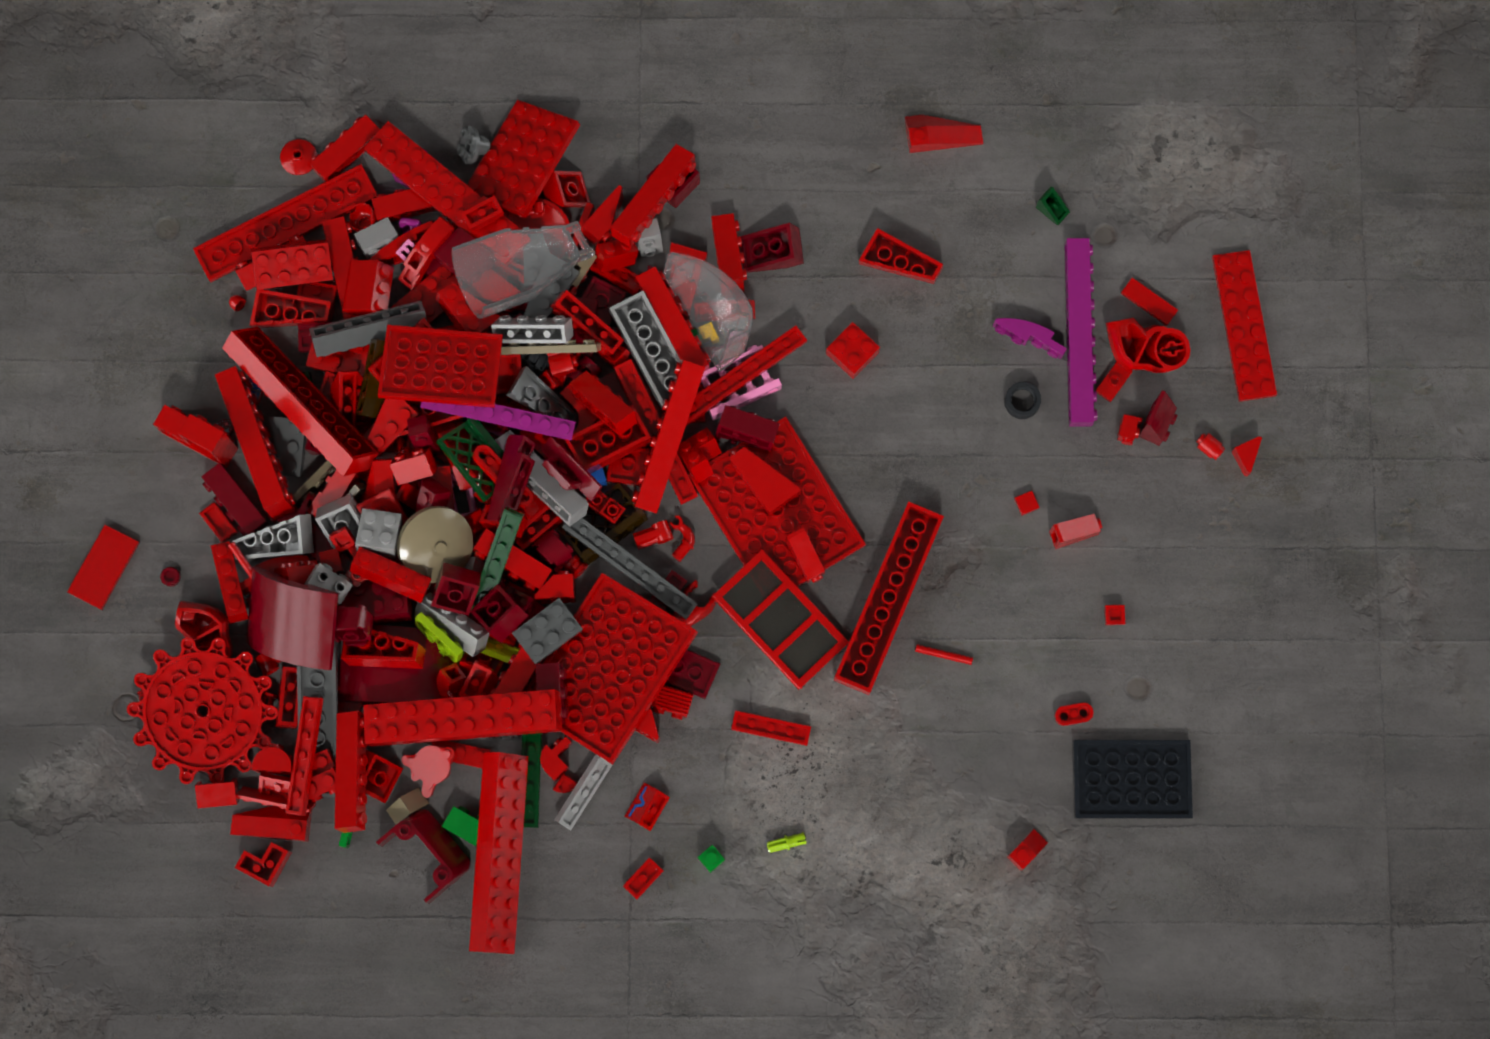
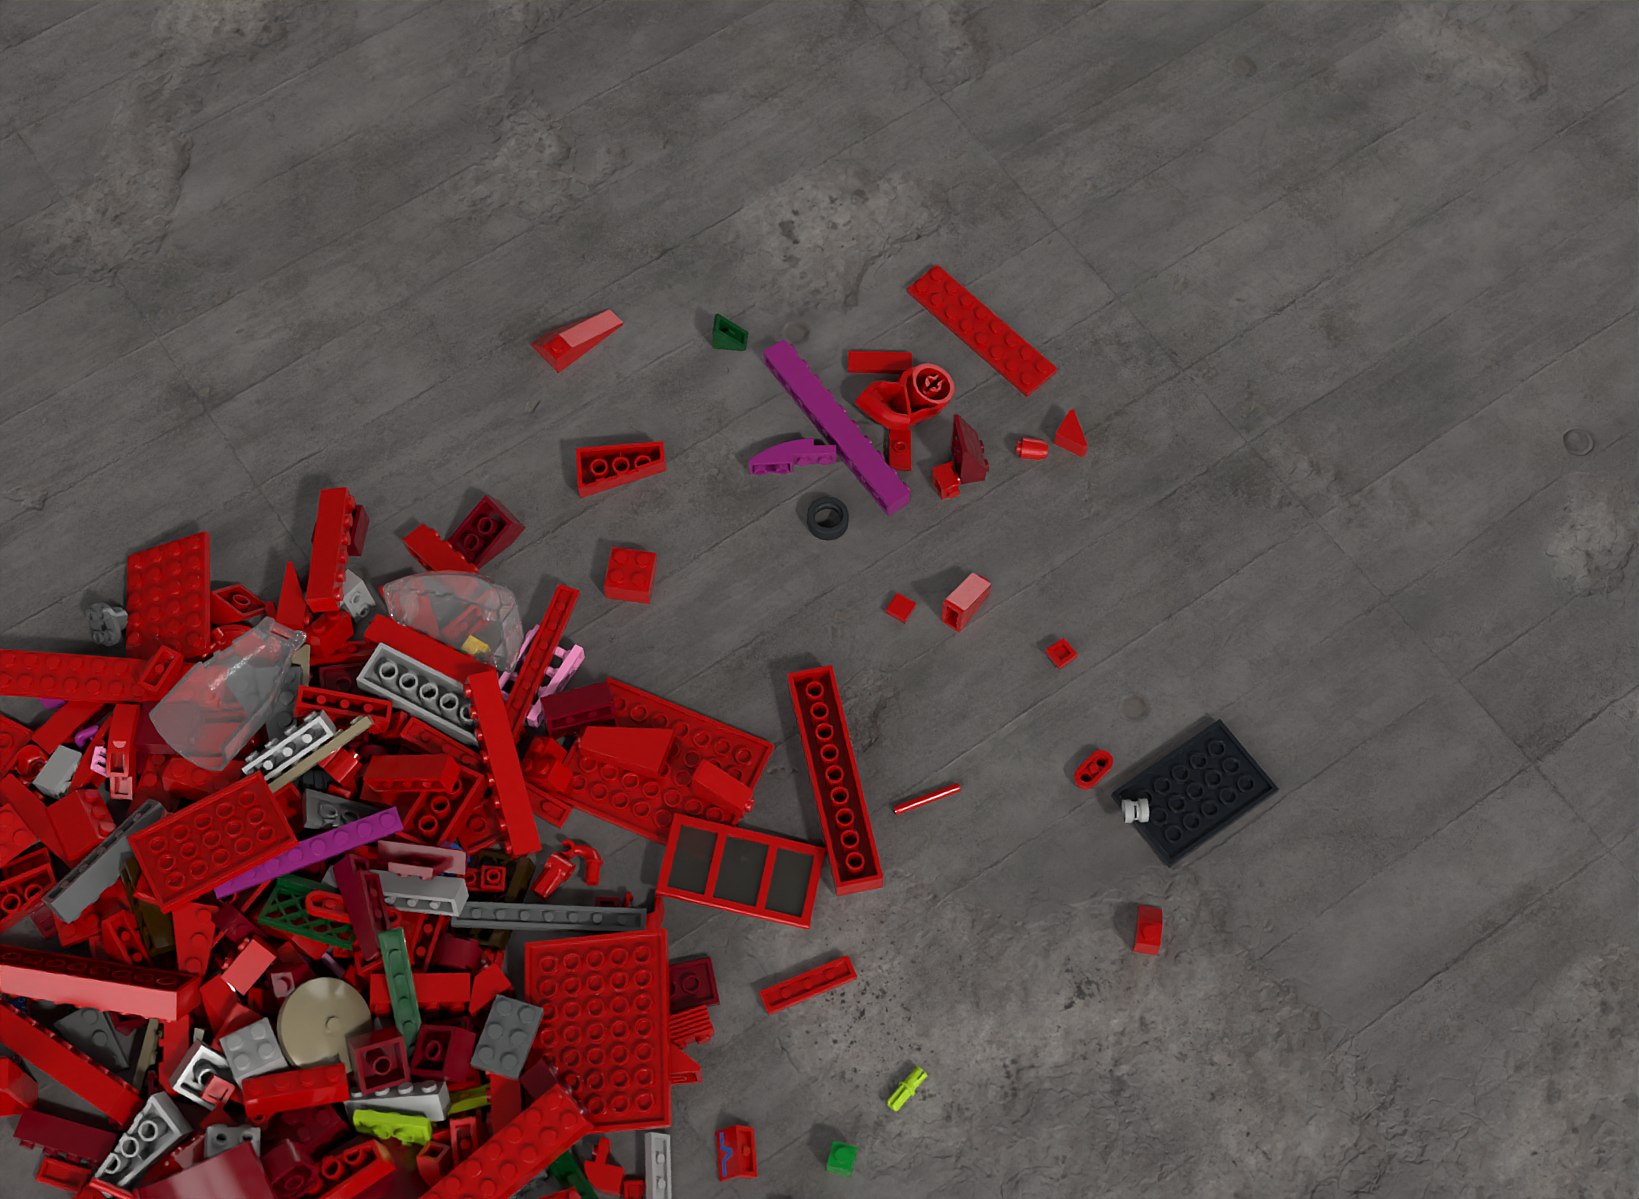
camera: 35 degrees left, 15 degrees down
(1081, 768) = (1135, 810): none -> light grey wheel

